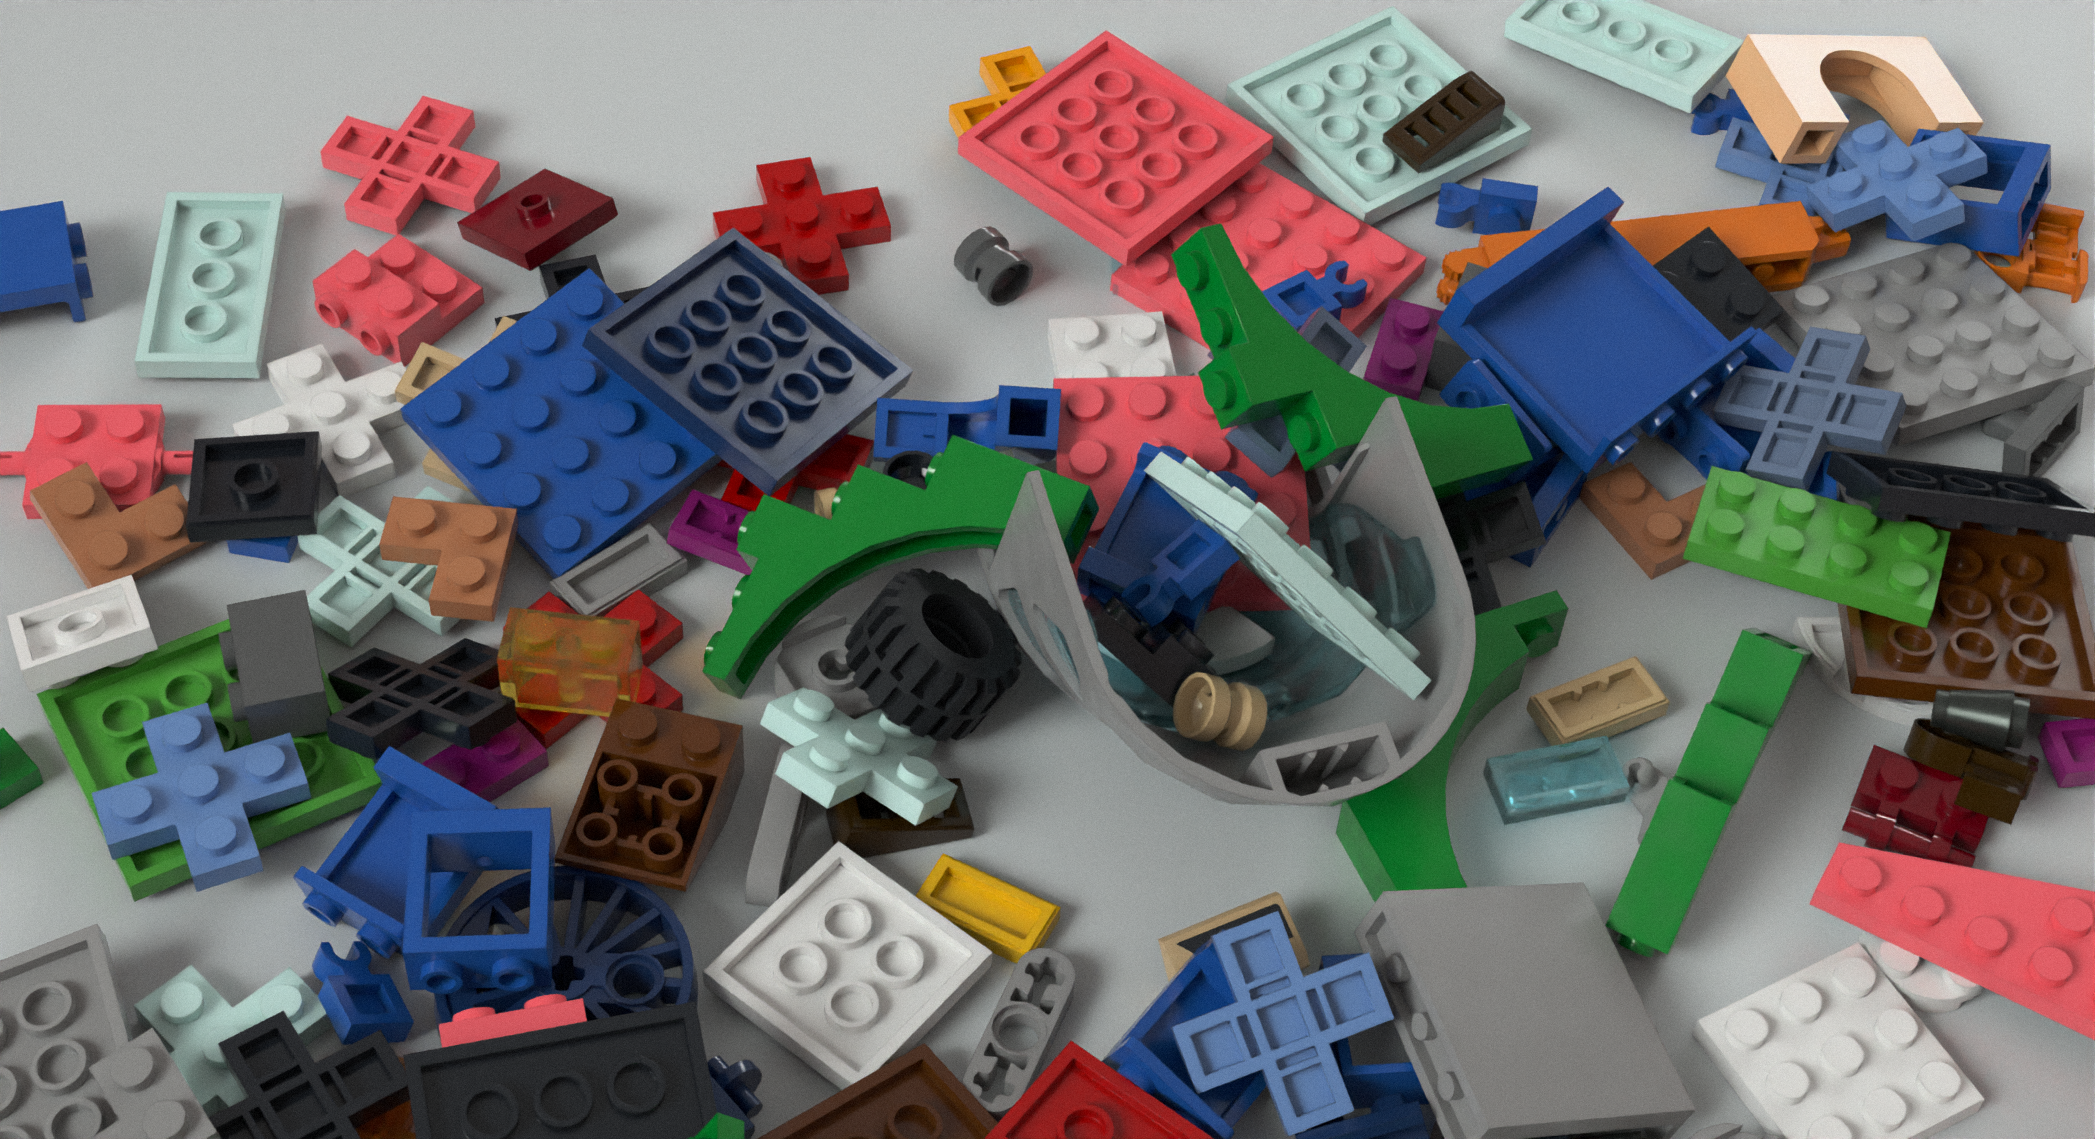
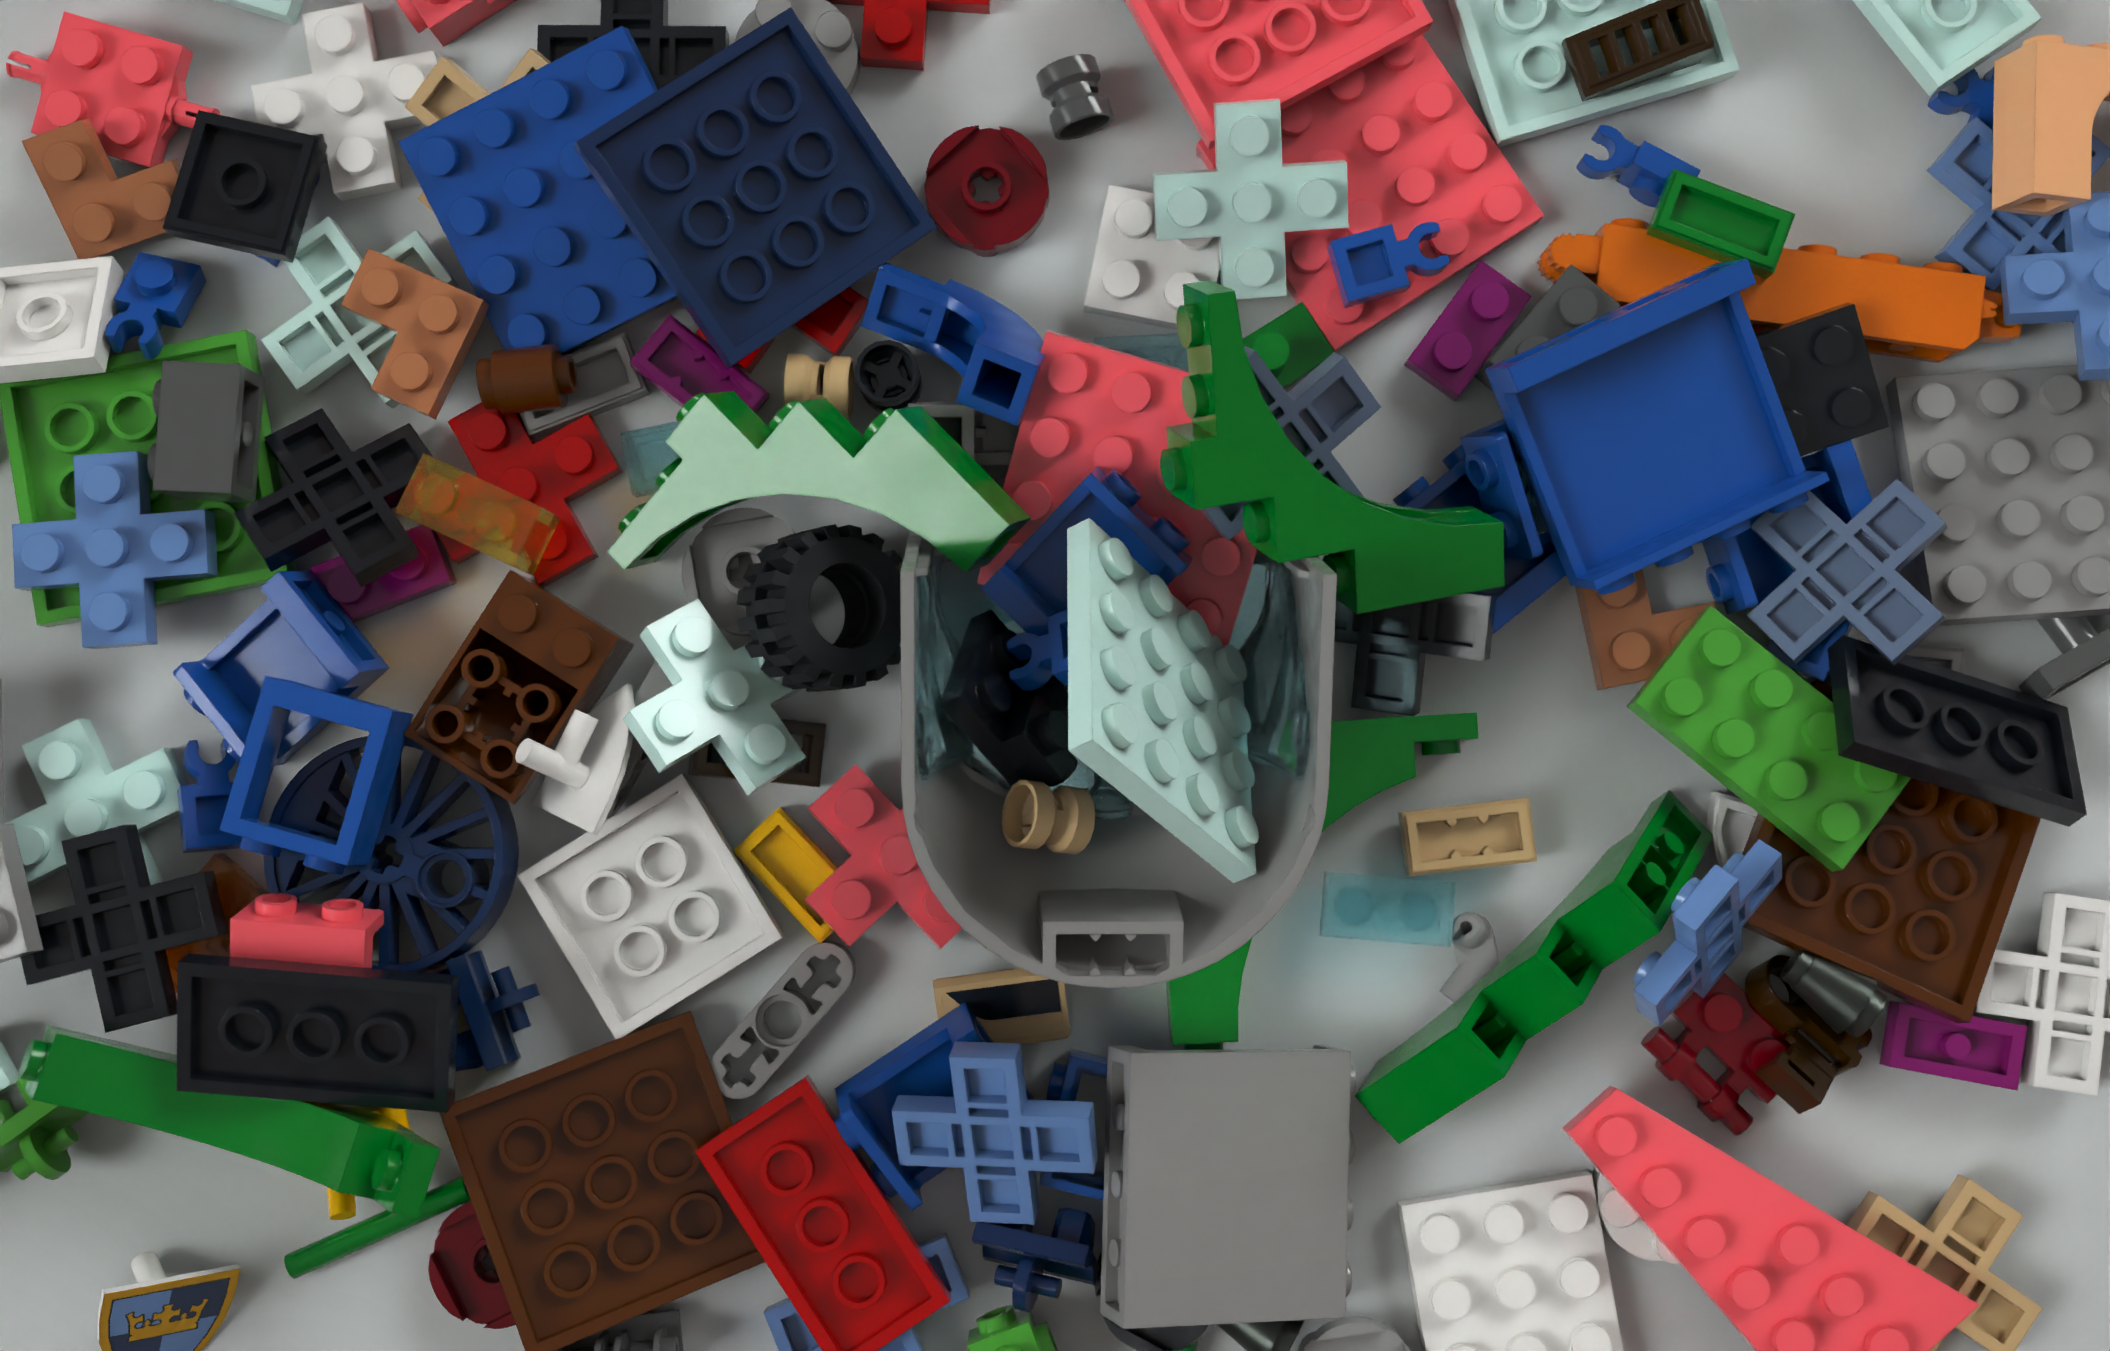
camera: 25 degrees right, 35 degrees up
(183, 597) = (153, 295): none -> blue plate
(576, 562) = (526, 379): none -> reddish brown brick
(706, 608) = (647, 456): none -> clear light blue tile
(746, 842) = (586, 763): none -> white shield
(948, 373) = (986, 153): none -> dark red plate
(1076, 860) = (879, 868): none -> coral plate
(1152, 291) = (1250, 198): none -> light aqua plate
(1545, 203) = (1720, 223): none -> green tile
(1848, 642) = (1706, 930): none -> medium blue plate

